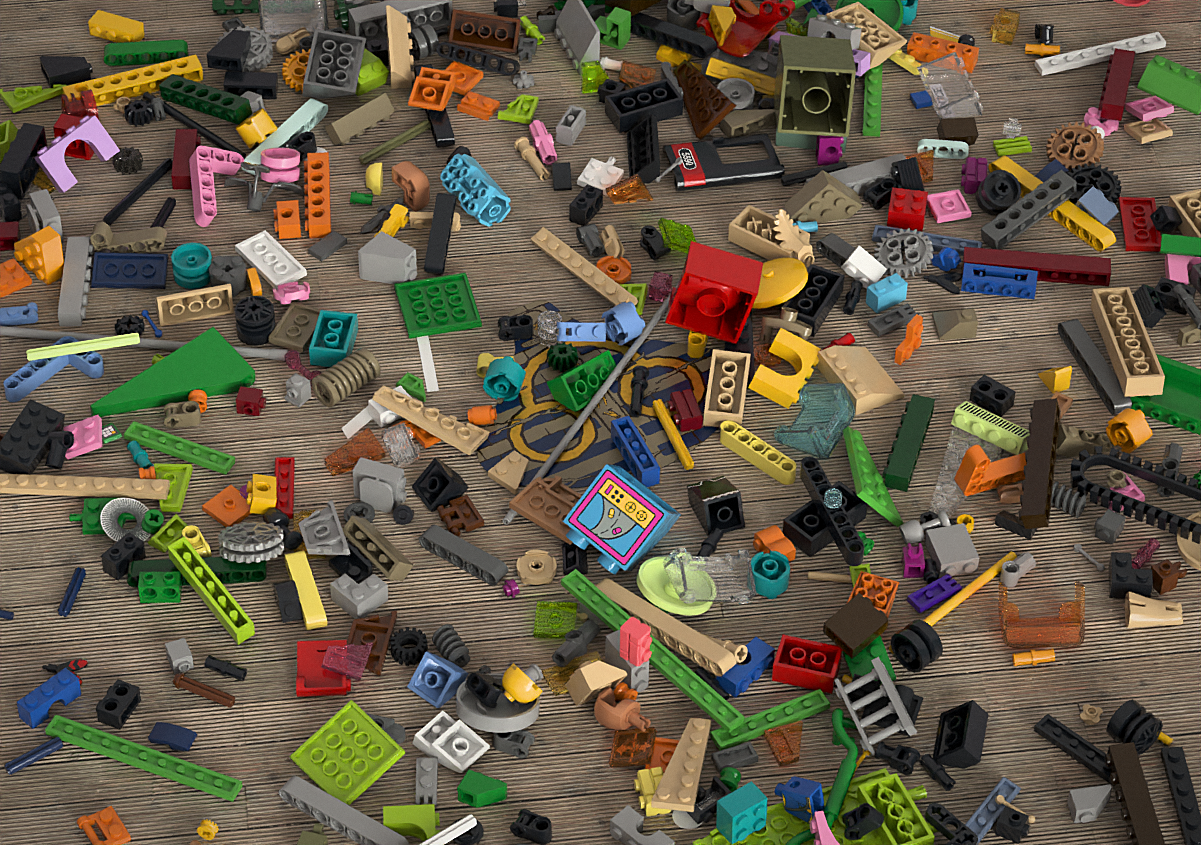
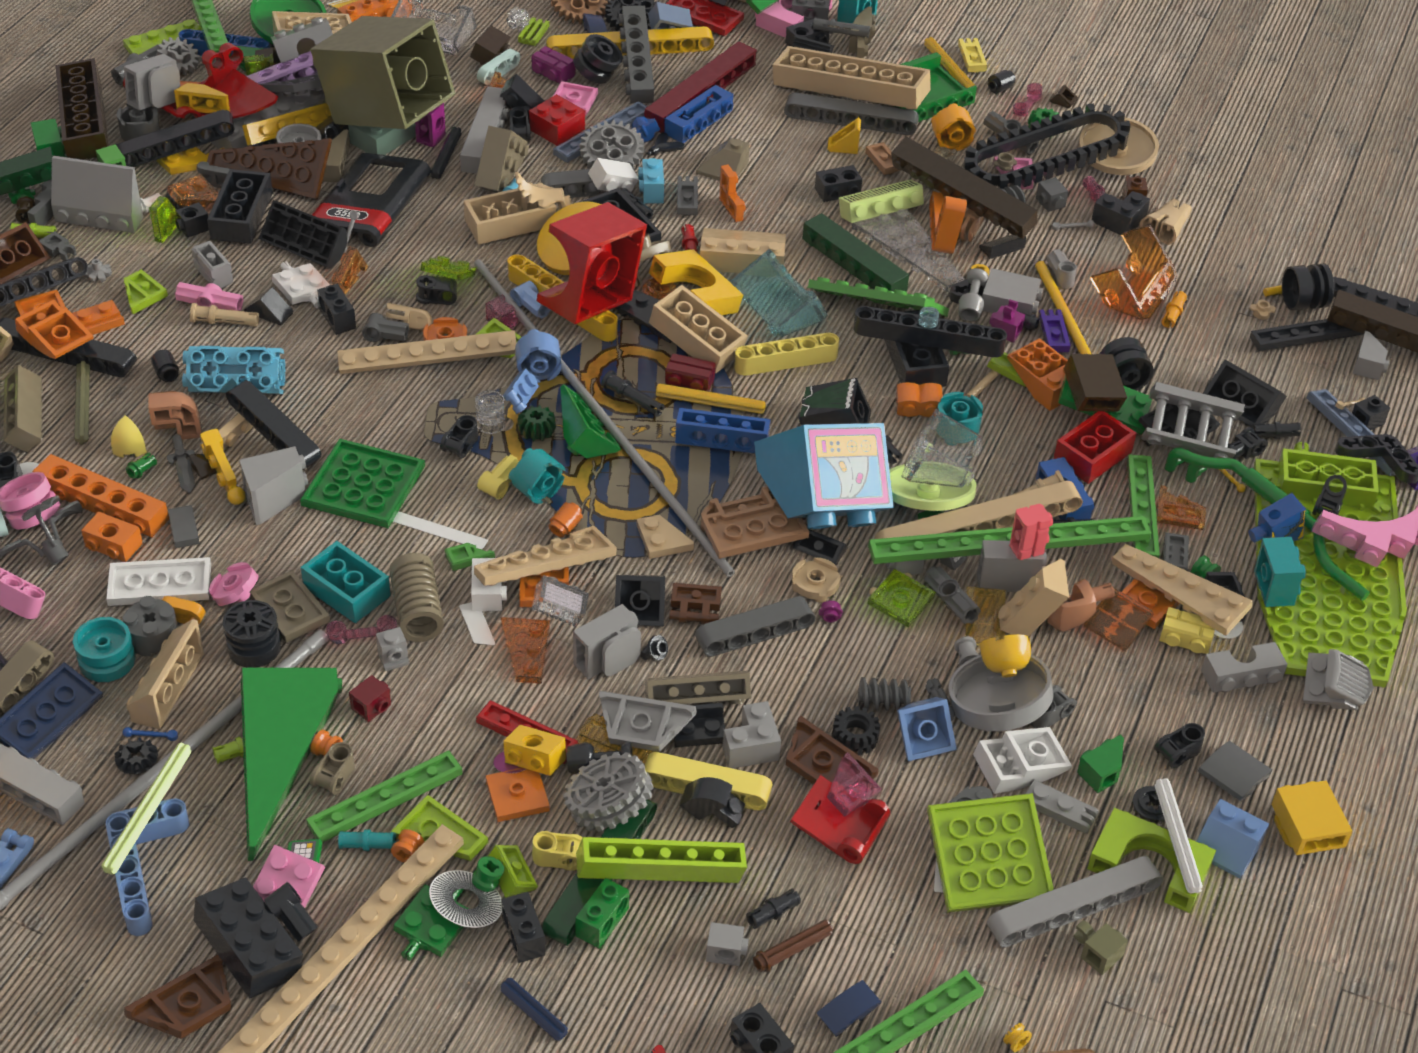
camera: 60 degrees left, 0 degrees up
(358, 508) = (628, 677): dark grey gear -> none
(485, 688) = (983, 687): black piece -> none

